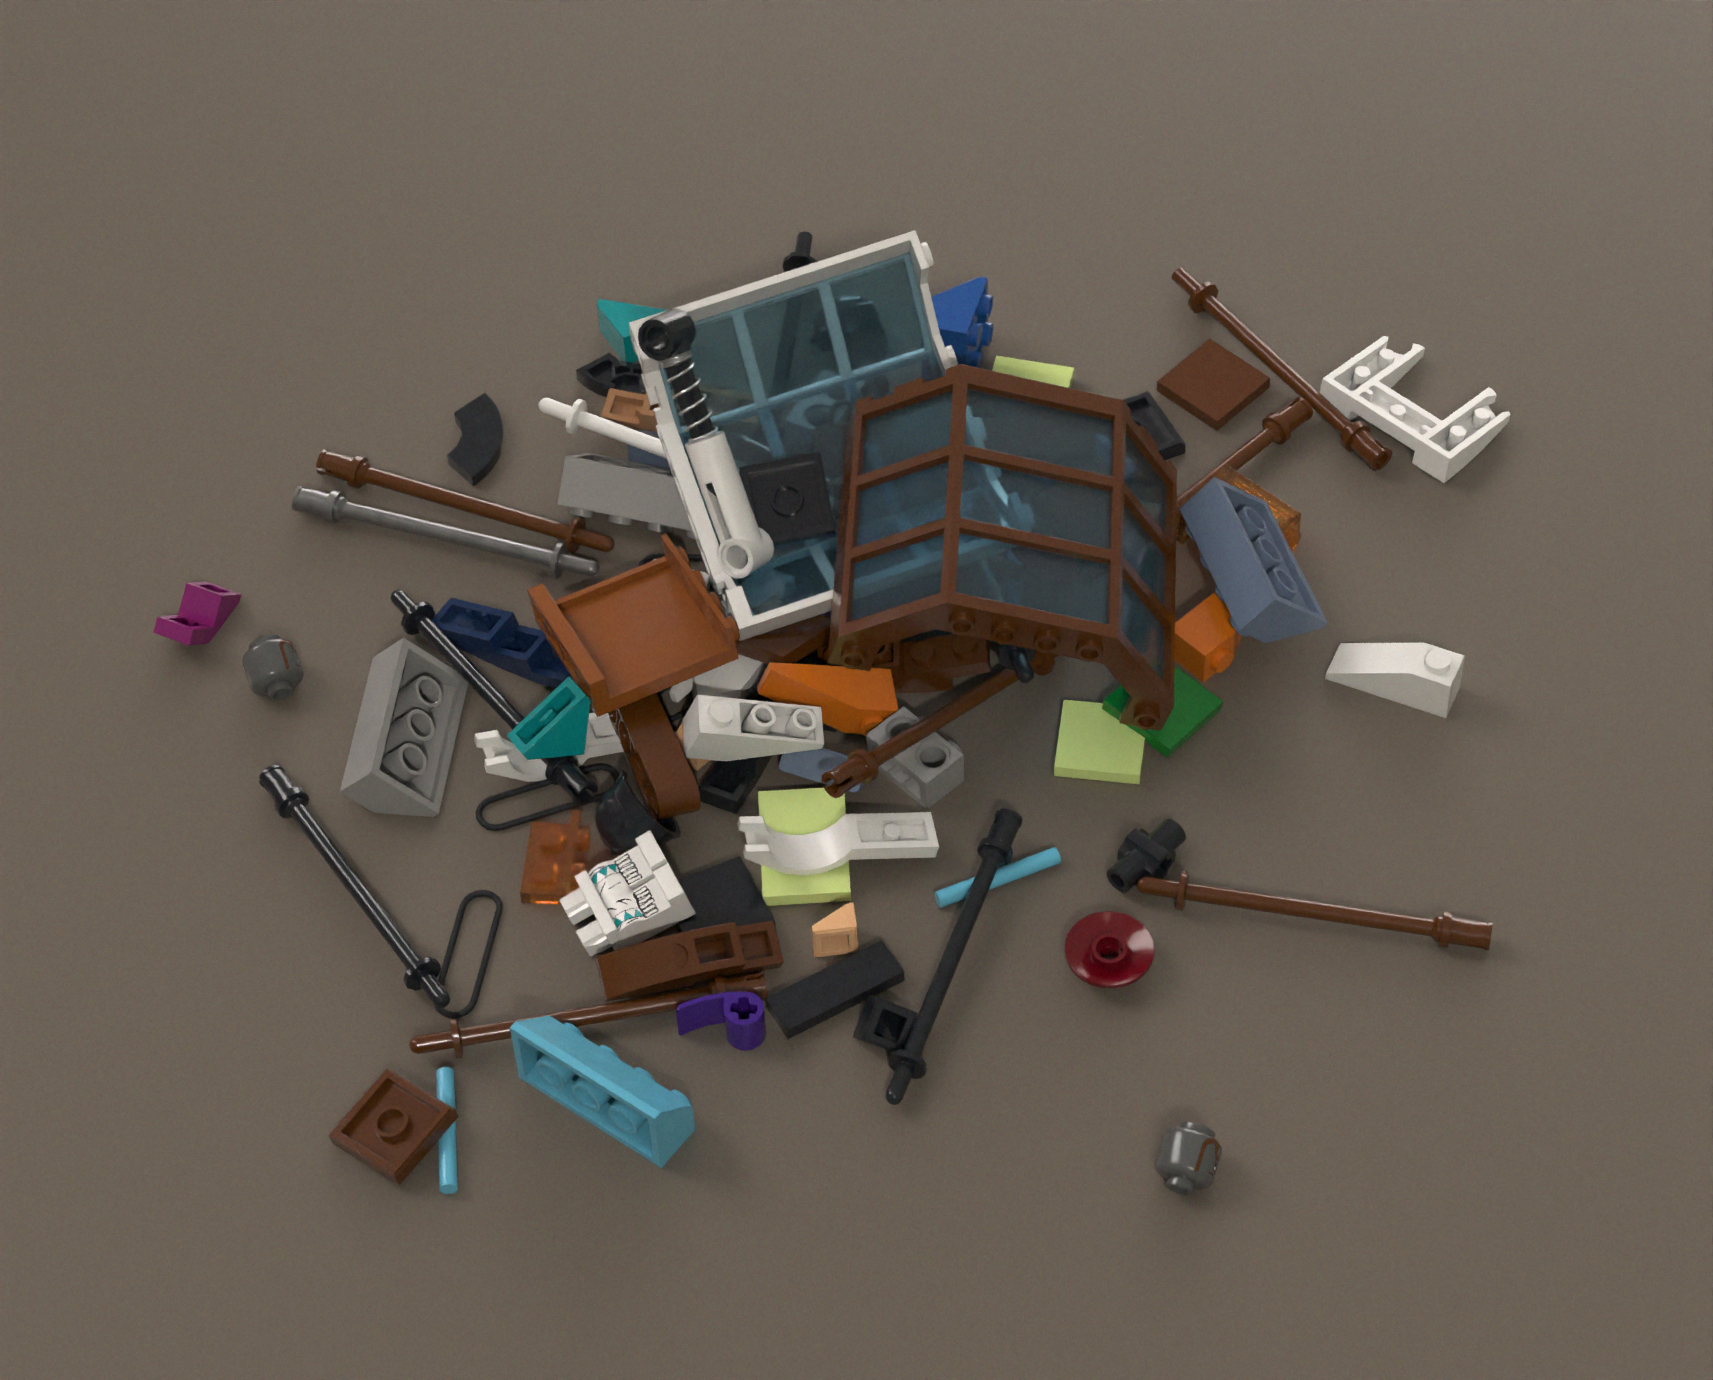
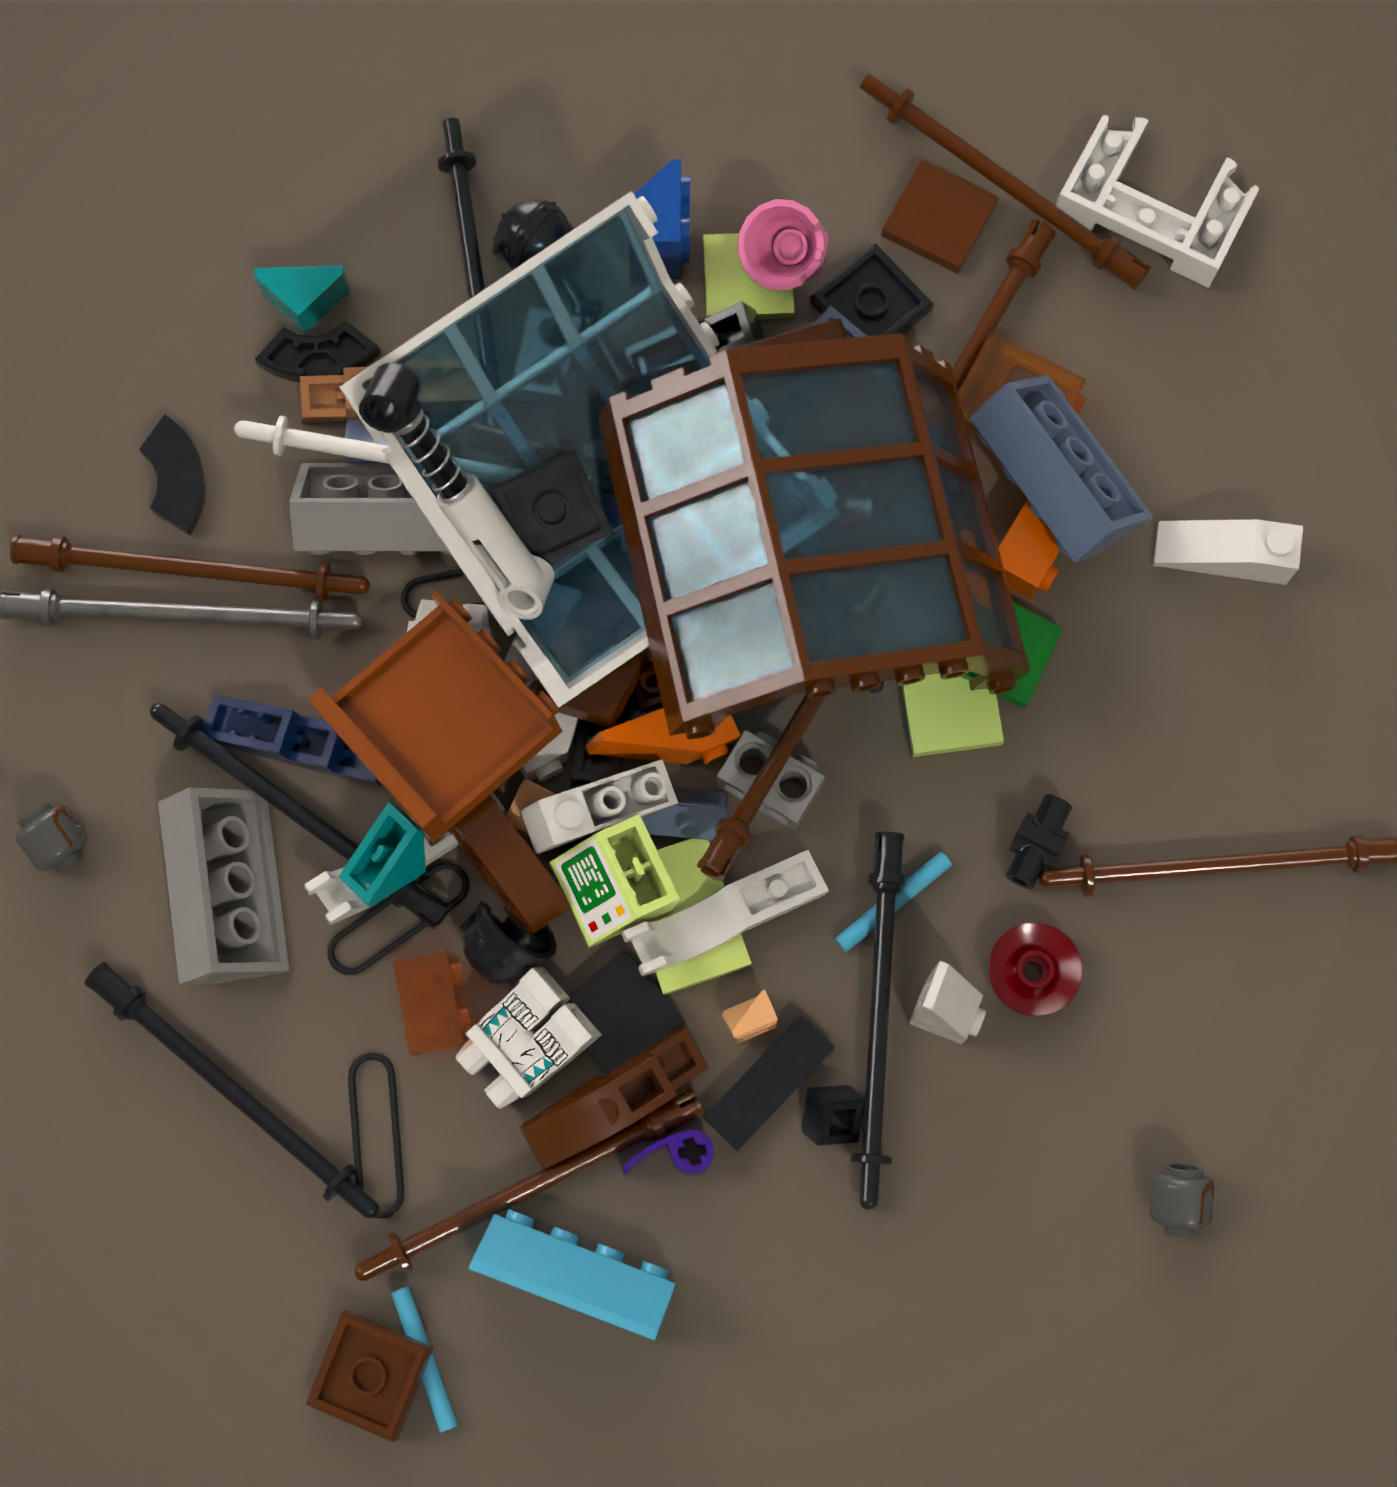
camera: 20 degrees left, 25 degrees up
(747, 780) = (615, 881): none -> yellowish green slope
(1012, 942) = (948, 1005): none -> white slope
(1059, 355) = (782, 245): none -> bright pink helmet

